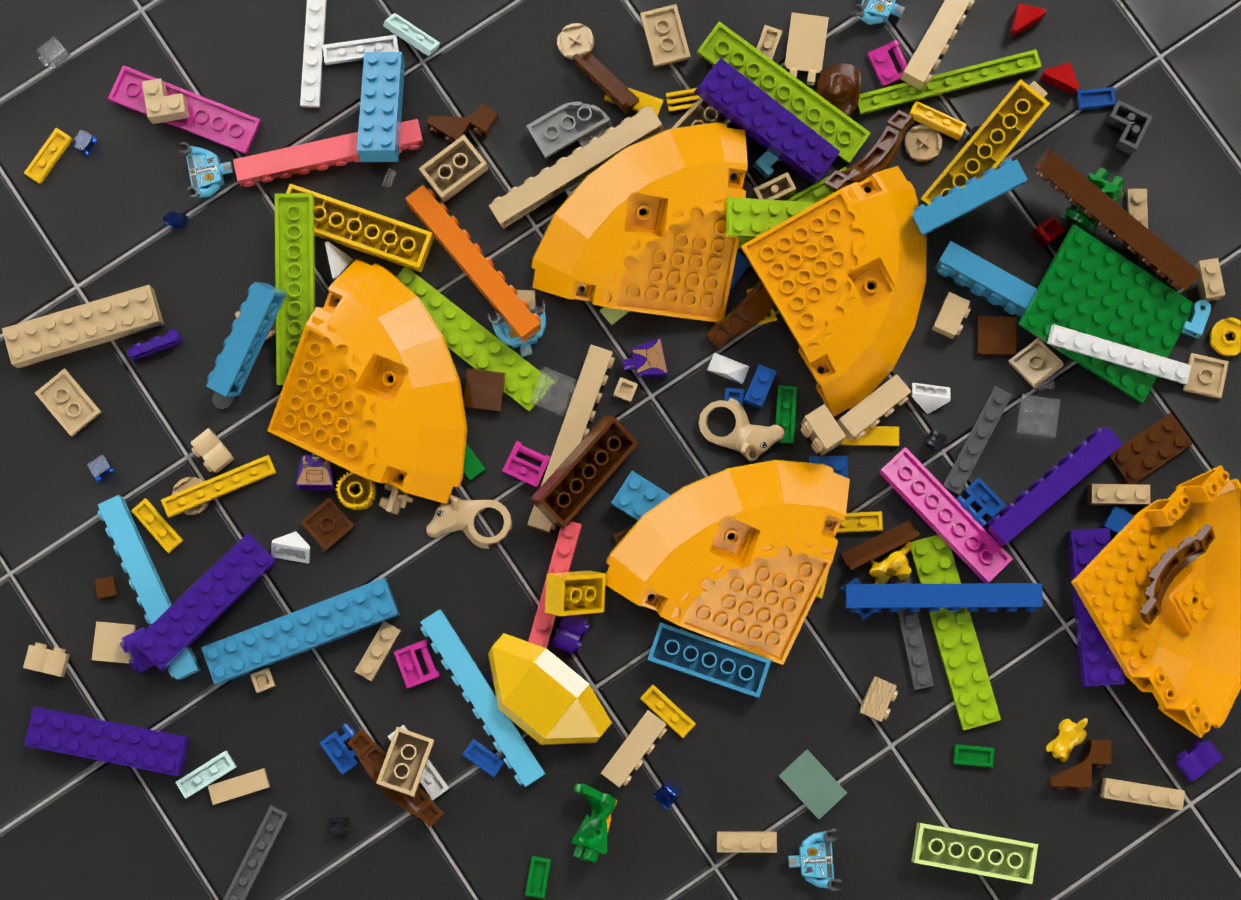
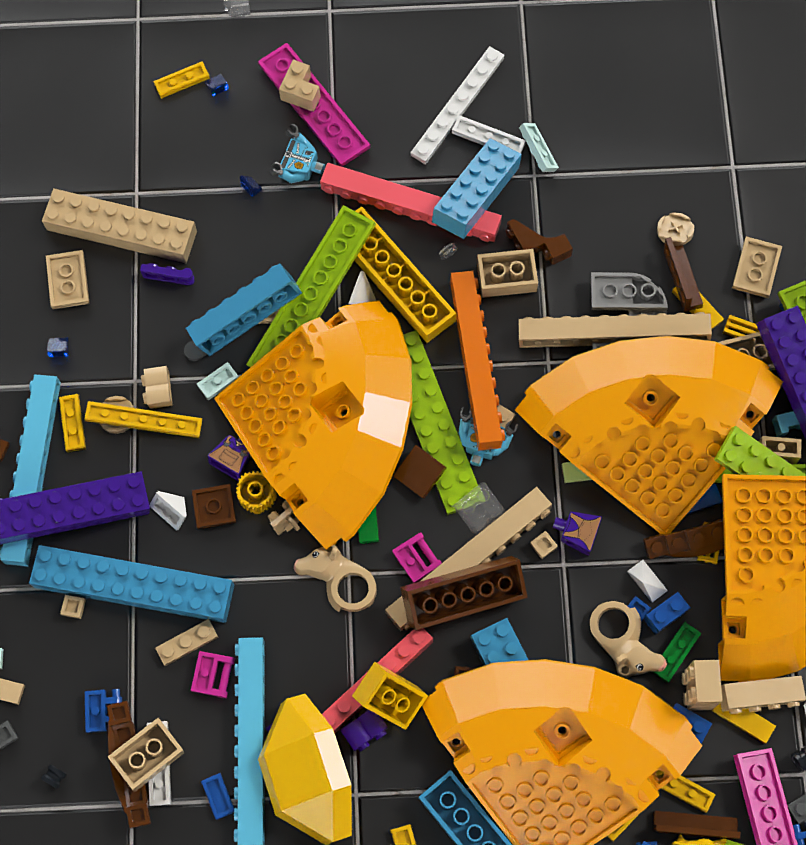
camera: 30 degrees right, 10 degrees down
(261, 414) = (217, 381): none -> light aqua plate

